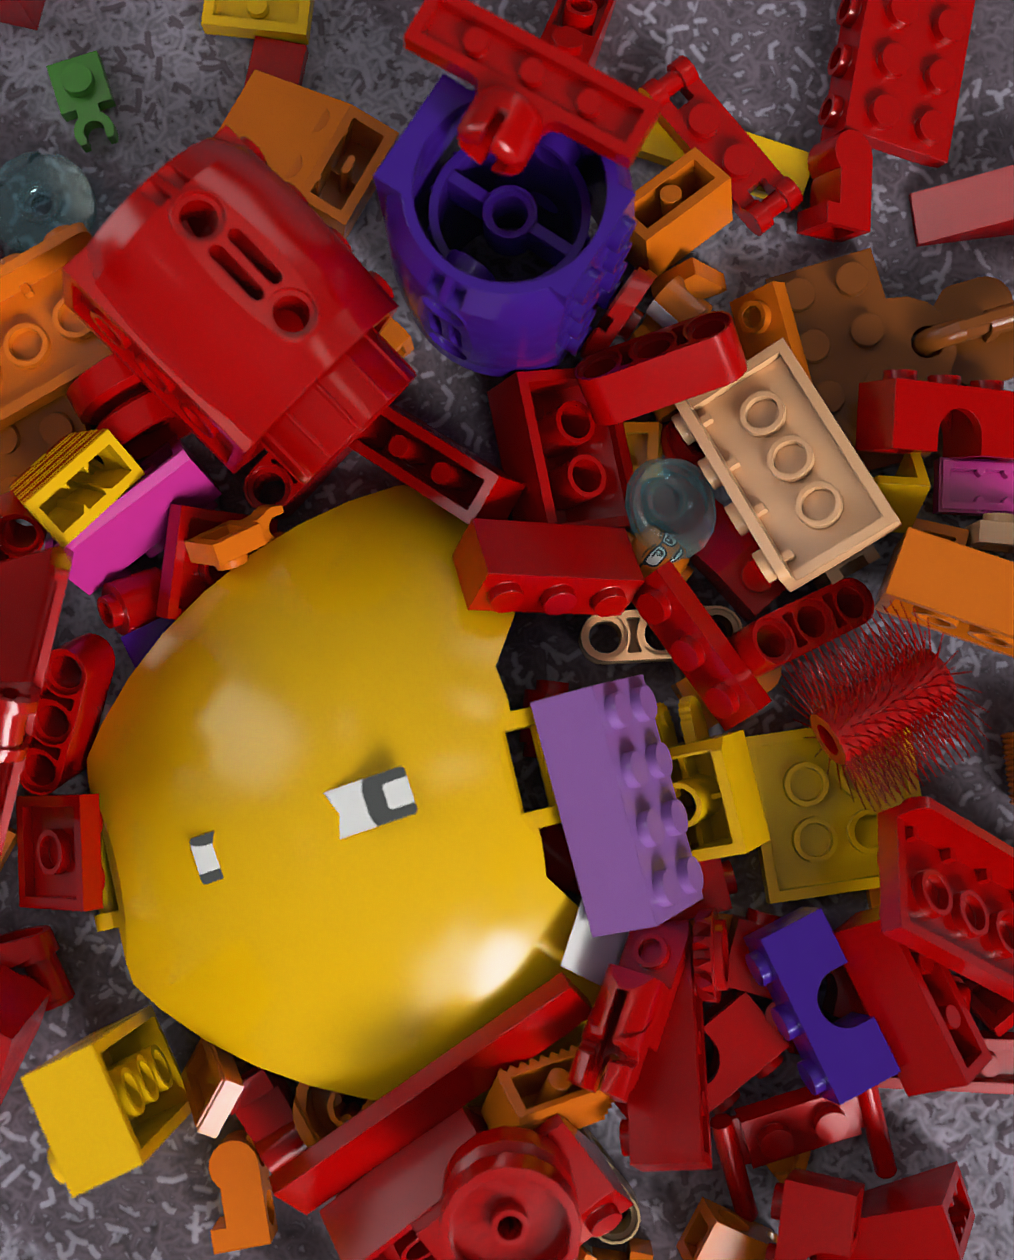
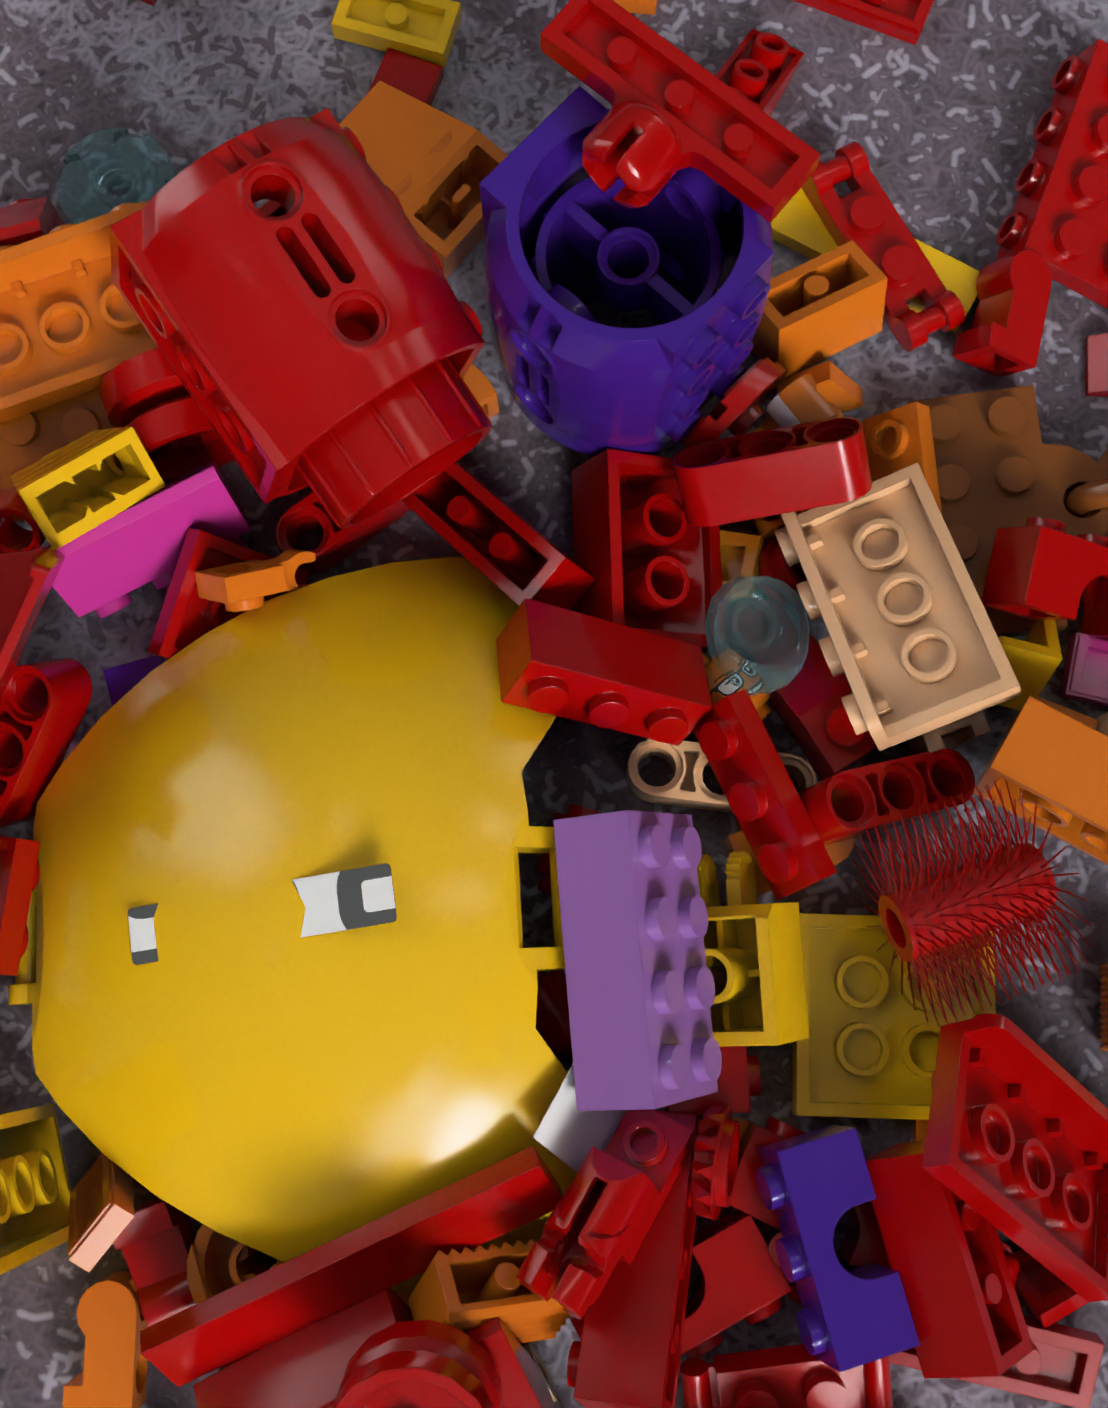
camera: 10 degrees right, 5 degrees down
(83, 93) = (187, 79): bright green plate -> none
(130, 601) = (122, 631): red brick -> none

